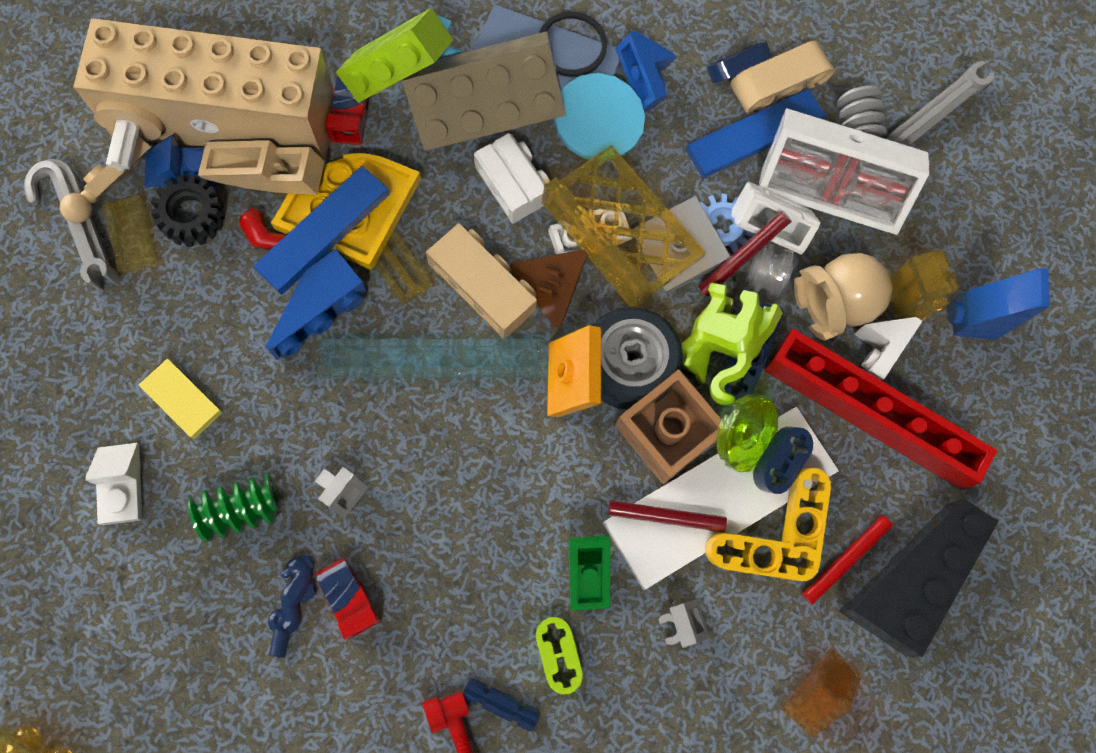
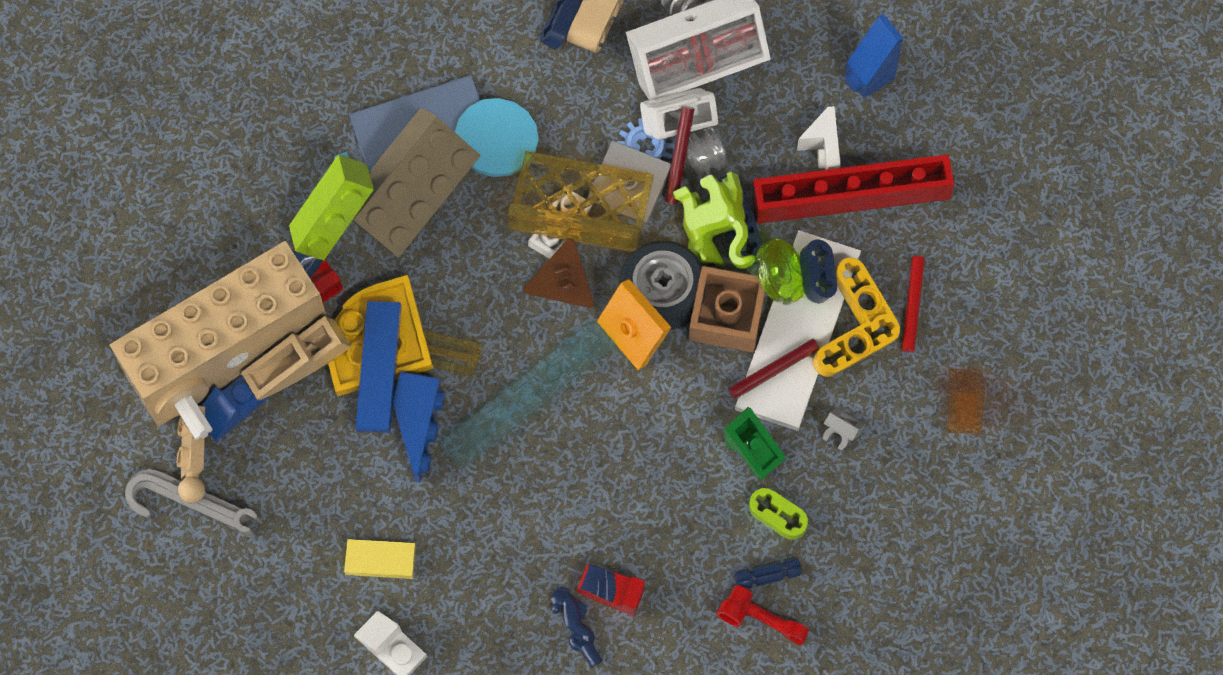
camera: 30 degrees left, 5 degrees down
(130, 235) = (239, 481): clear yellow tile -> none
(175, 195) = (259, 414): black tyre -> none
(234, 510) = (486, 590): green piece -> none
(256, 232) = (329, 408): red arm -> none
(341, 490) = (544, 526): light grey tile -> none
(482, 280) = (516, 314): tan brick -> none
(511, 176) = (473, 228): white brick -> none
(583, 17) = (434, 72): black piece -> none
(642, 63) = (493, 76): blue slope -> none
(747, 135) = (611, 64): blue tile -> none
(846, 292) = (768, 127): tan tile -> none
(922, 286) = (815, 84): clear yellow brick -> none
(923, 579) = (969, 285): black wedge -> none

